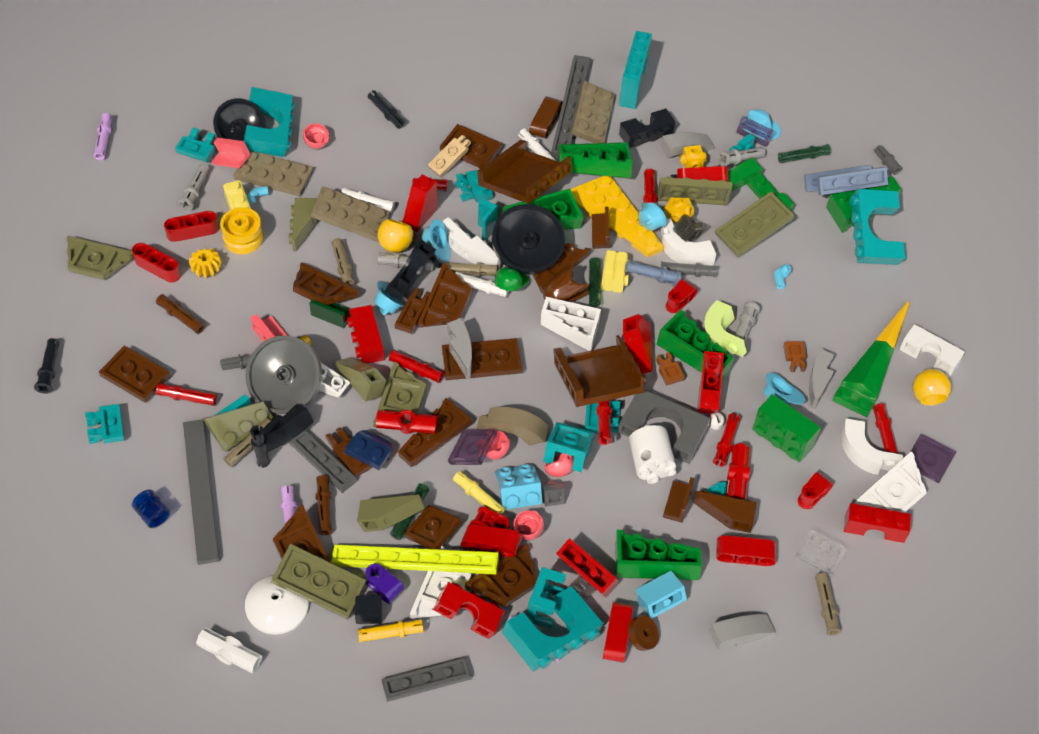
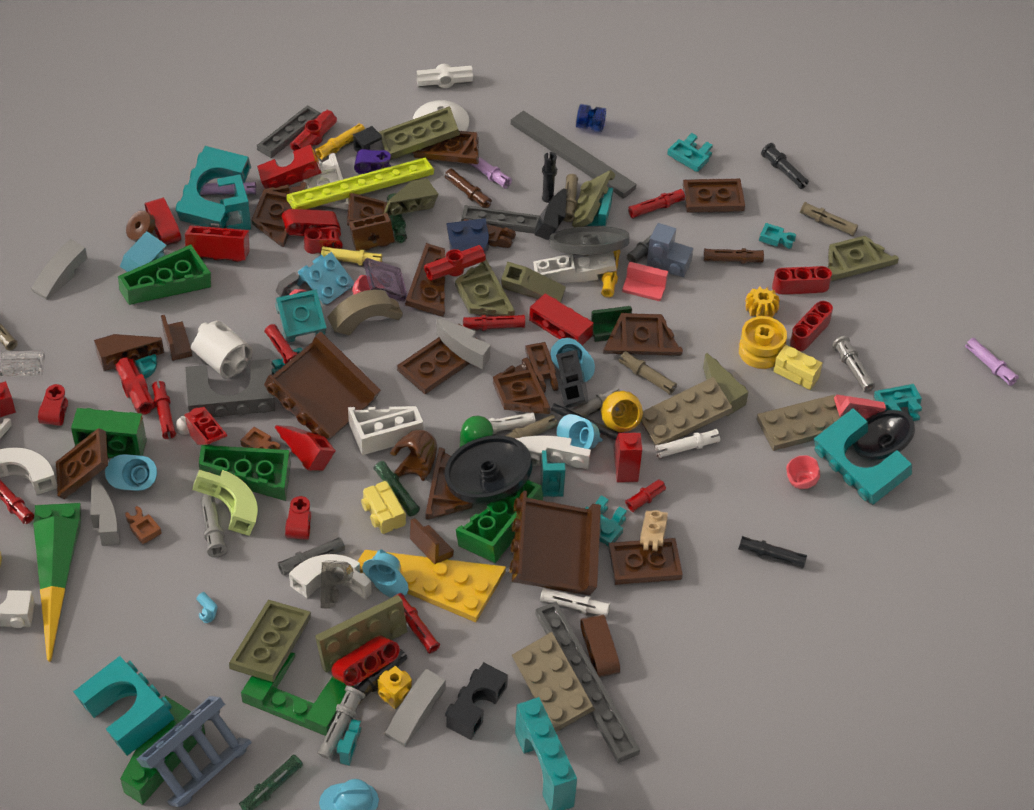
camera: 145 degrees right, 5 degrees down
(75, 305) = (821, 215): none -> dark tan pin
(130, 310) = (774, 235): none -> teal plate
(231, 336) = (666, 253): none -> sand blue brick
(255, 192) = (797, 391): medium azure arm -> none
(396, 658) = (314, 130): none -> red piece
(447, 498) = (379, 225): none -> reddish brown brick
(529, 524) = (289, 251): coral hair -> none
(598, 158) = (491, 616): green wedge -> none
(661, 274) = (332, 525): sand blue pin -> none
(677, 207) = (361, 602): yellow brick -> none
(746, 550) = (89, 328): red beam -> none
(768, 131) = (348, 774): clear purple tile -> none
(822, 410) = (81, 463): none -> reddish brown plate

